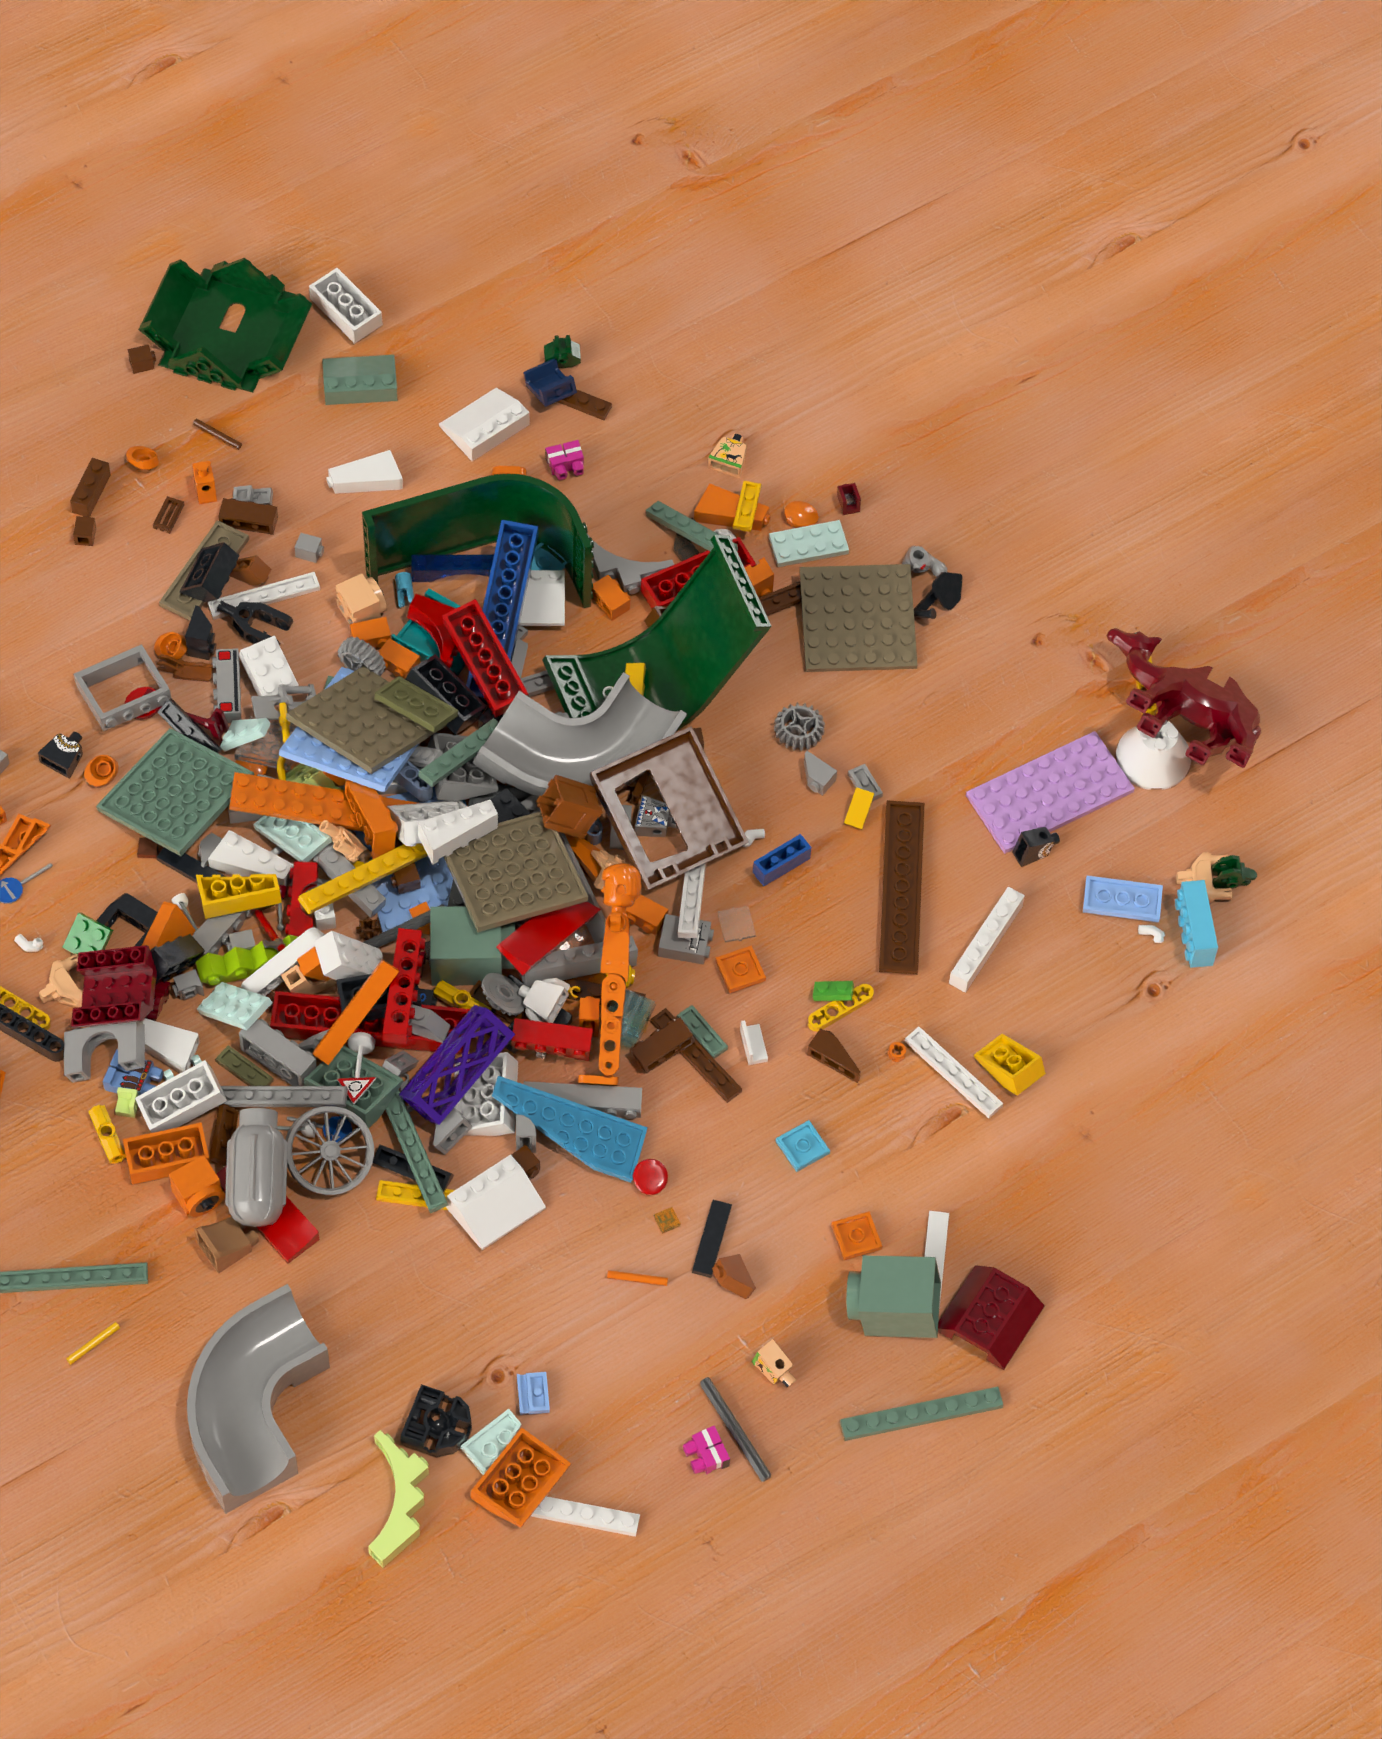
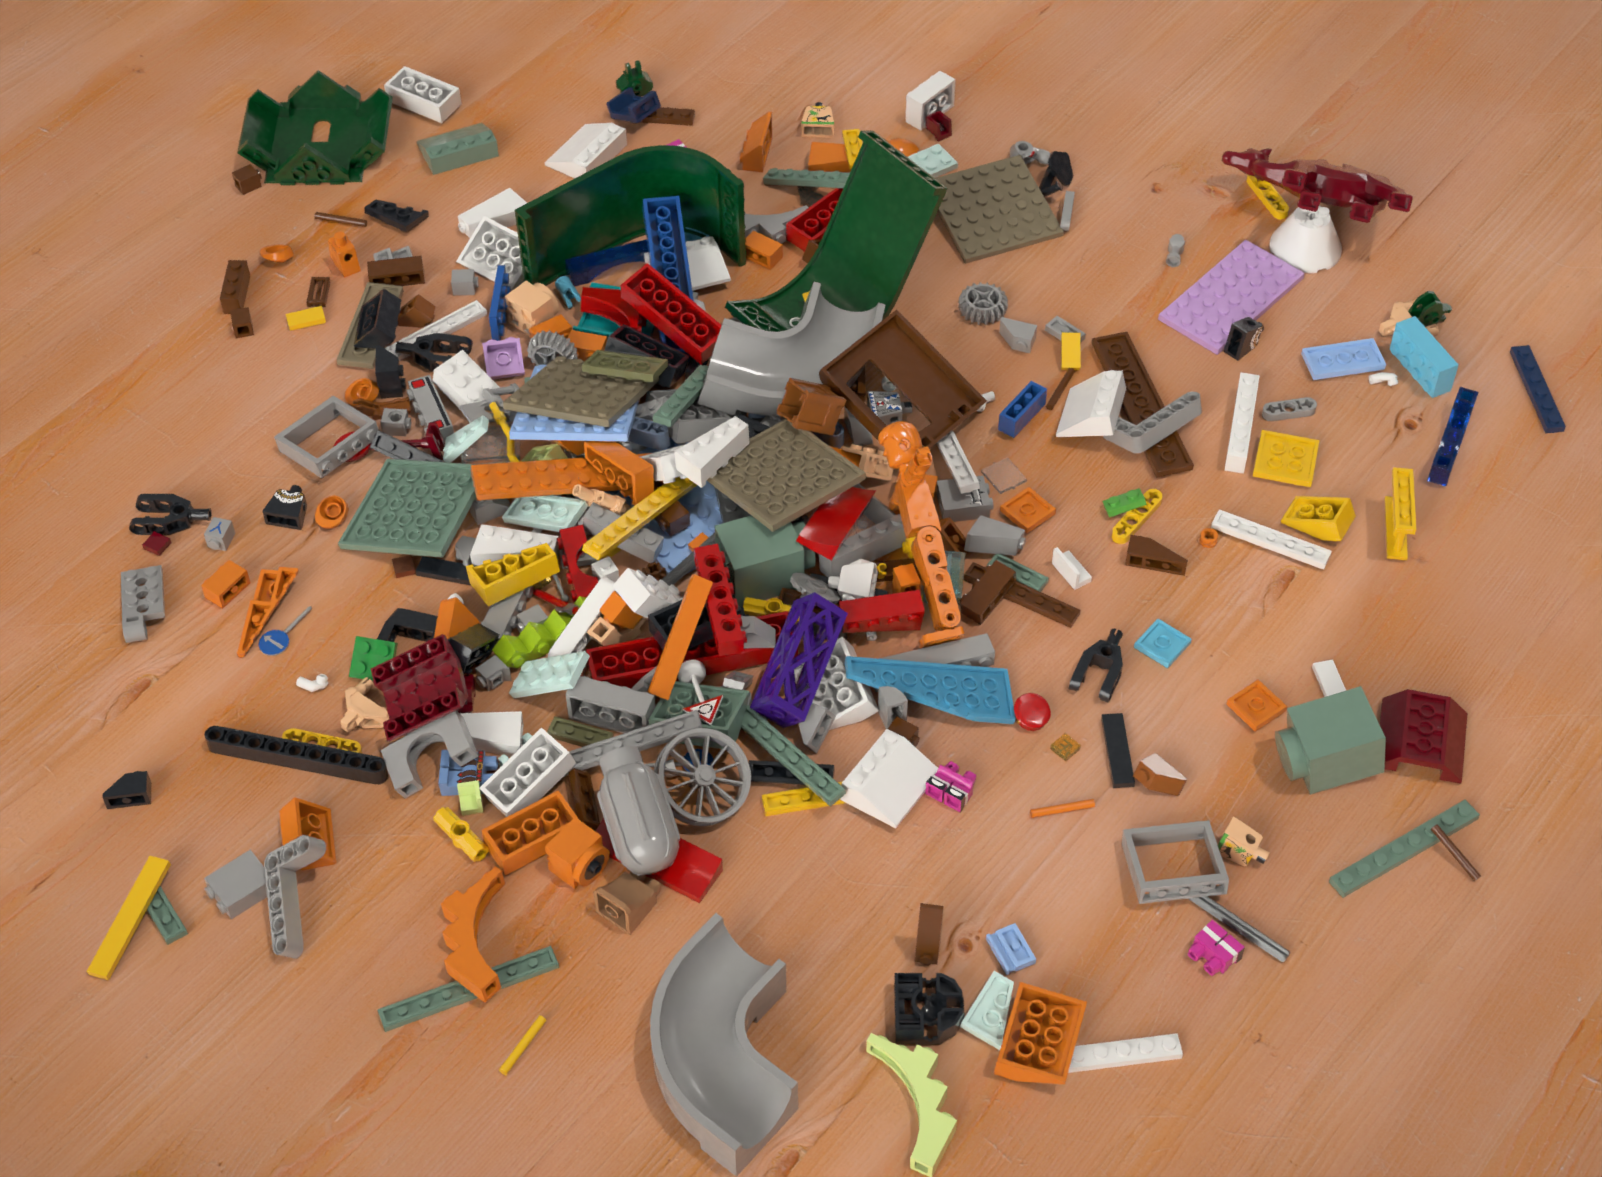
camera: 15 degrees left, 10 degrees down
(75, 1229) = (461, 935): none -> orange arch
(146, 542) = (305, 318): none -> yellow tile
(188, 683) = (395, 422): none -> light grey brick
(272, 448) = (395, 216): none -> black wing
(315, 649) = (503, 358): none -> lavender plate
(327, 595) = (498, 305): none -> blue plate
(342, 523) = (493, 246): none -> white slope
(464, 1360) = (929, 934): none -> reddish brown slope
(546, 1227) = (950, 786): none -> dark pink hips
(652, 977) = (951, 536): none -> dark orange slope
(656, 468) = (757, 144): none -> orange slope
(693, 989) = (994, 537): none -> light grey slope
(705, 1388) = (1177, 887): none -> light grey window
(732, 1139) = (1106, 656): none -> black piece
(834, 844) = (1061, 387): none -> reddish brown bar
(849, 880) = (1093, 406): none -> white slope
(851, 466) = (929, 97): none -> white brick
(898, 921) = (1158, 426): none -> light grey beam
(932, 642) = (1067, 210): none -> light grey beam
(962, 1433) = (1456, 853): none -> reddish brown bar
(1011, 990) = (1286, 458): none -> yellow plate
(1021, 719) = (1175, 249): none -> light grey leg
(1028, 930) = (1302, 408): none -> light grey beam
(1081, 1087) = (1400, 513): none -> yellow fence
(1169, 1033) = (1452, 436): none -> clear blue arch
(1297, 990) = (1537, 389): none -> dark blue plate

